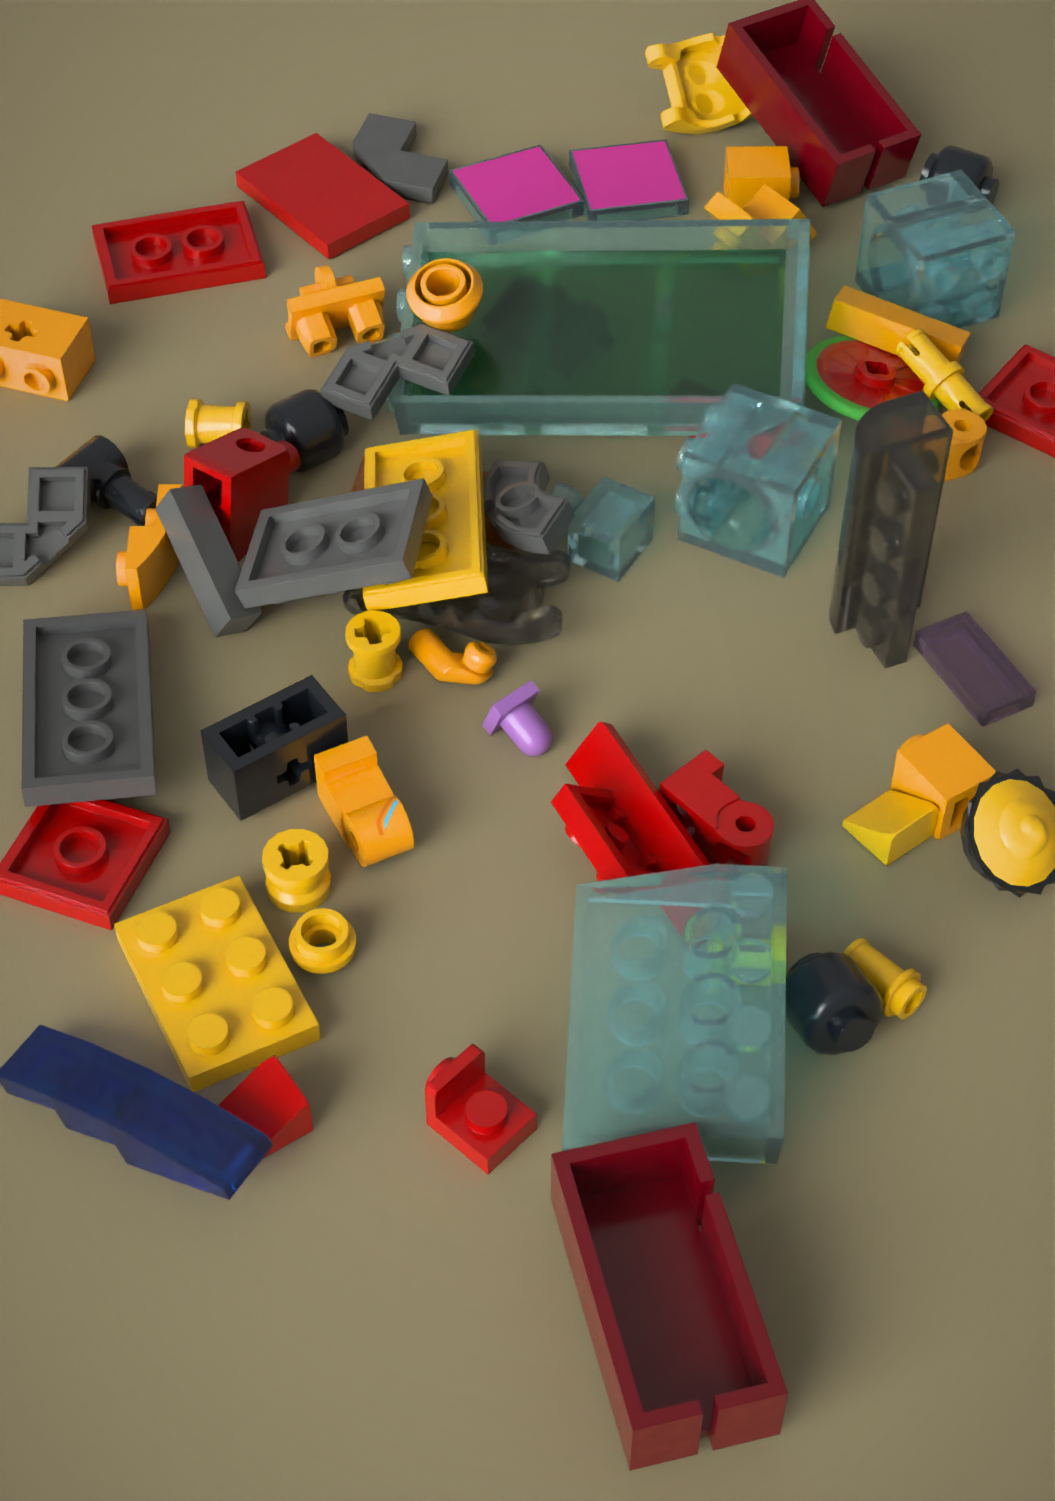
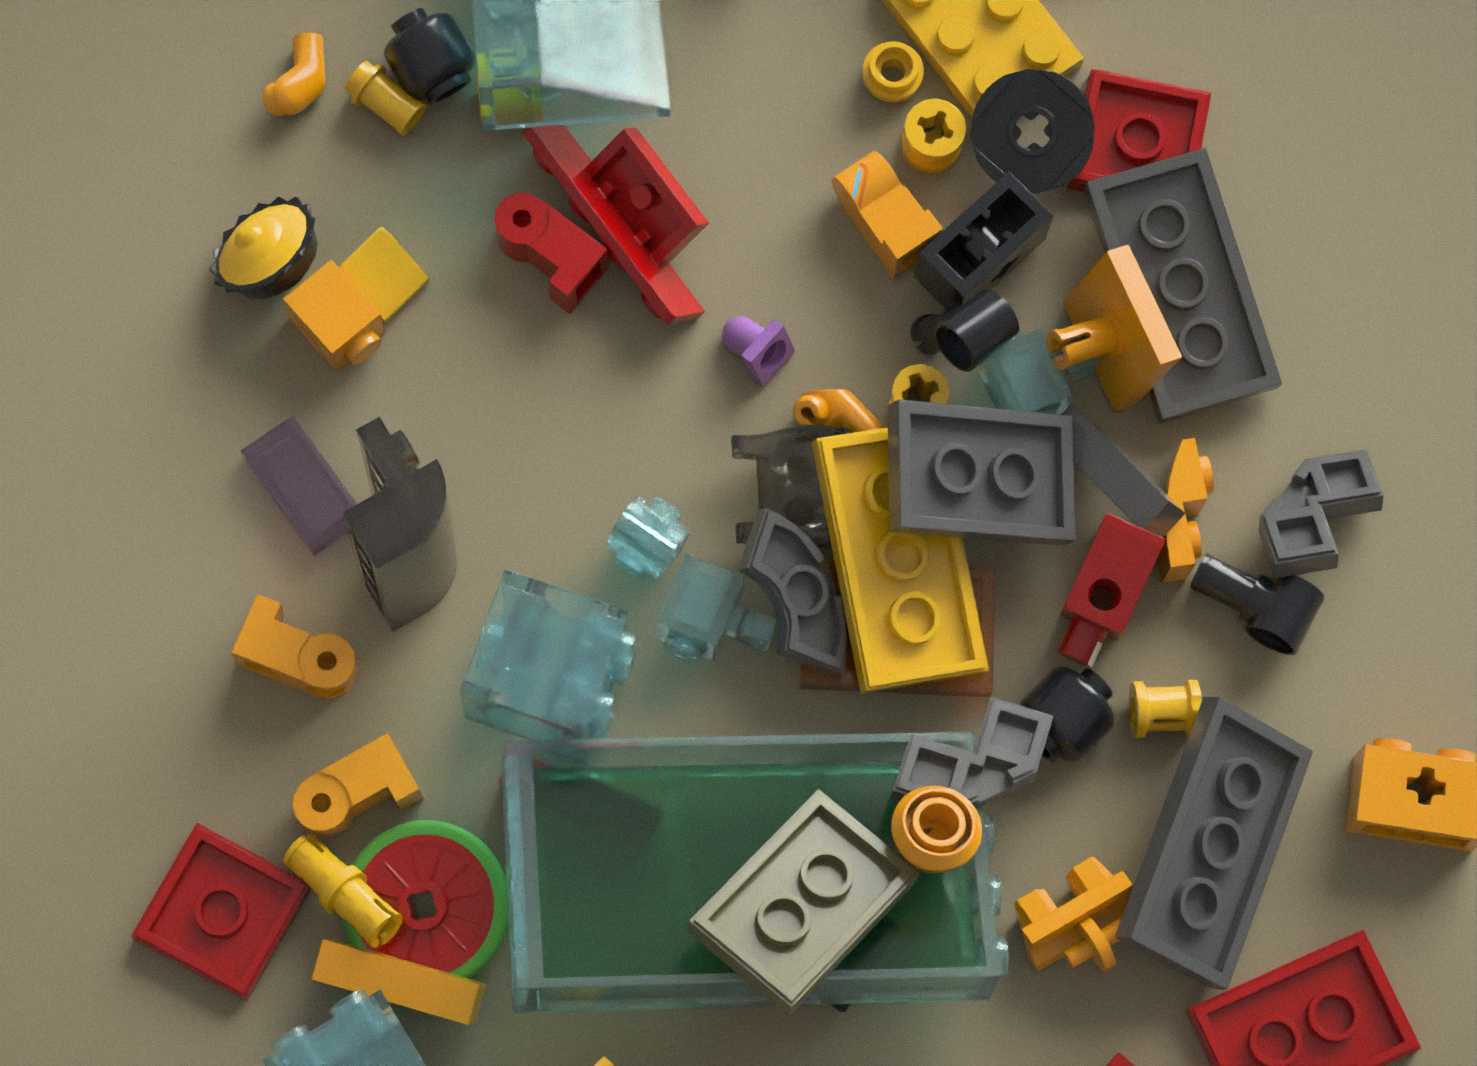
camera: 165 degrees right, 25 degrees up
(168, 652) = (1120, 324): none -> light orange tile
(193, 841) = (1028, 95): none -> black plate
(208, 332) = (1214, 843): none -> dark grey plate
(262, 653) = (1025, 377): none -> clear light blue brick
(316, 647) = (967, 332): none -> black pin
(566, 268) = (803, 902): none -> tile
(651, 576) = (648, 537): none -> clear light blue gear
(983, 995) = (303, 82): none -> light orange arm
(986, 541) = (314, 664): none -> light orange leg

